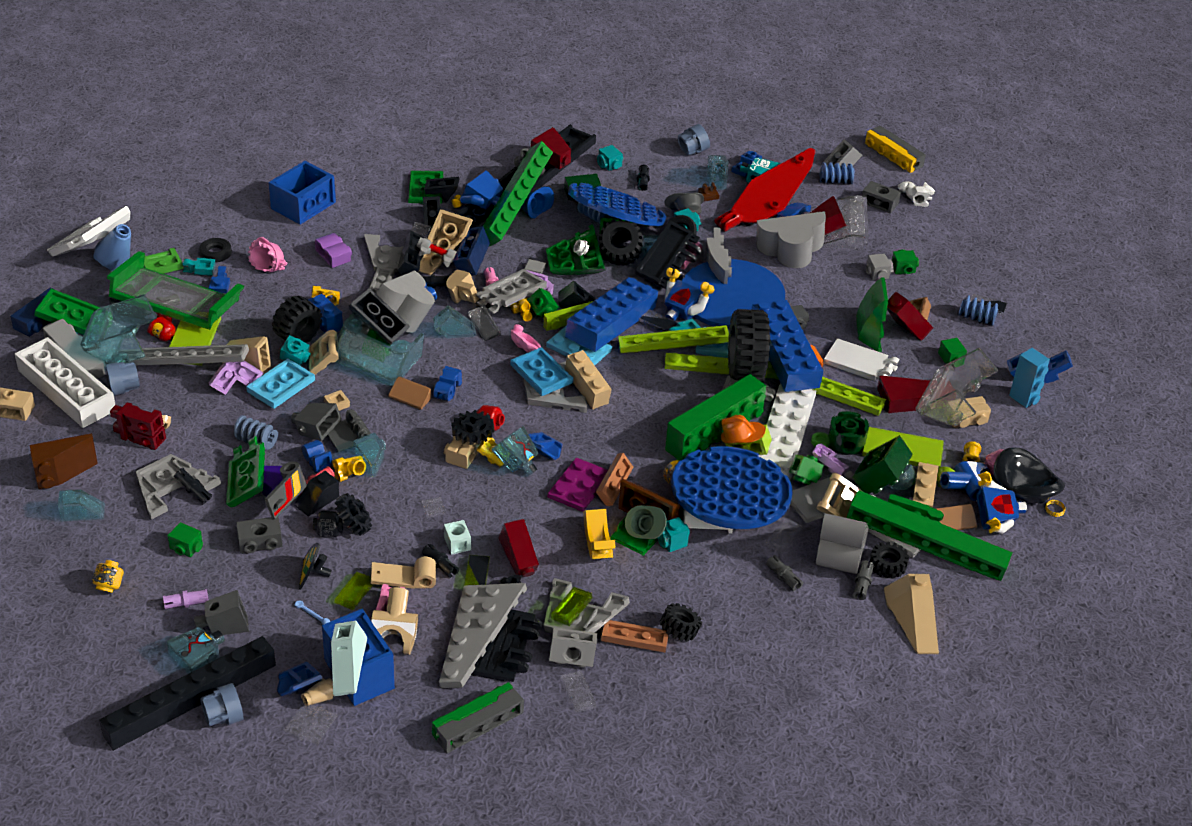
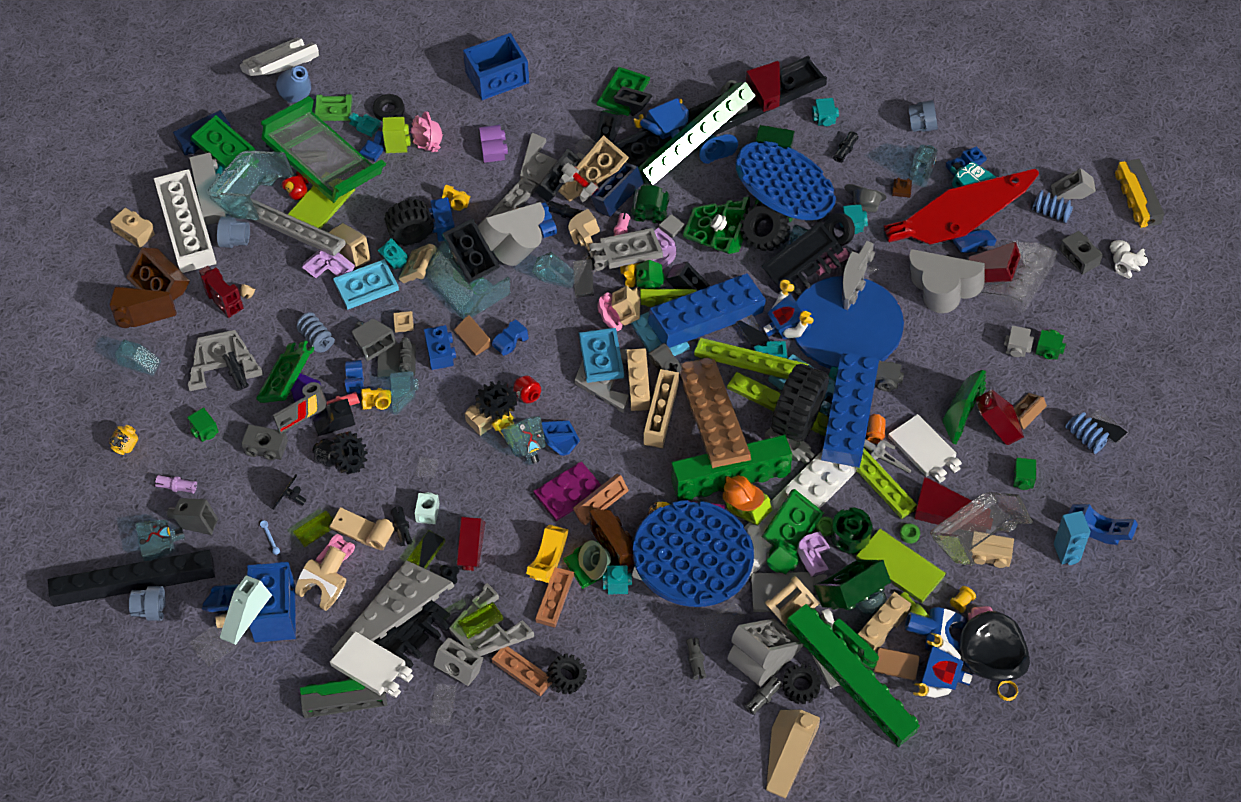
camera: 30 degrees right, 15 degrees up
(51, 426) = (157, 273): none -> reddish brown slope
(239, 262) = (395, 134): none -> lime brick
(385, 410) = (439, 348): none -> blue brick
(494, 676) = (371, 665): none -> white tile
(508, 253) = (650, 204): none -> dark green brick
(538, 329) = (627, 304): none -> tan brick
(602, 360) = (664, 359): none -> dark grey piece
(623, 395) = (661, 408): none -> tan brick
(625, 569) = (554, 597): none -> nougat plate
(674, 380) = (713, 413): none -> medium nougat plate
(794, 439) = (793, 520): none -> green tile
(827, 374) = (879, 452): none -> light grey piece
(893, 423) = (909, 533): none -> bright green tile

